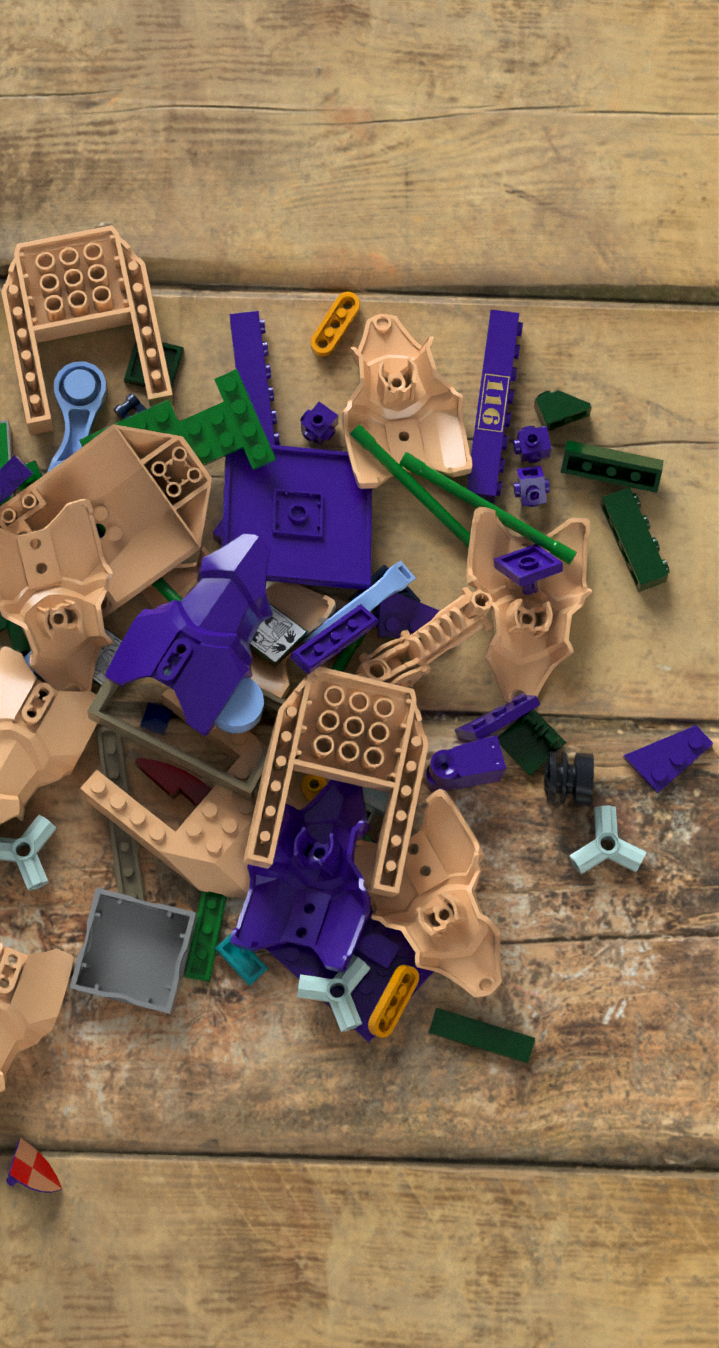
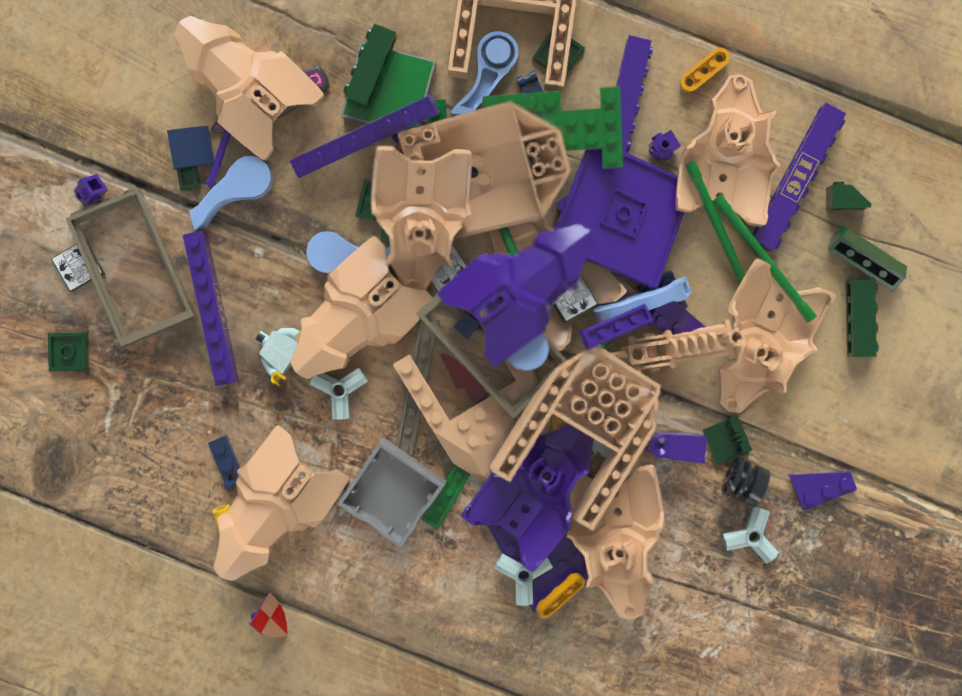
camera: 25 degrees right, 15 degrees up
(243, 962) = (467, 531): teal plate -> none
(378, 949) = (565, 555): dark purple tile -> none
(482, 1035) = (613, 636): dark green tile -> none
(498, 718) = (708, 419): dark purple wing -> none
(528, 566) = (778, 315): dark purple tile -> none
(531, 486) = (802, 251): dark purple brick -> none
(532, 444) = (816, 219): dark purple brick -> none

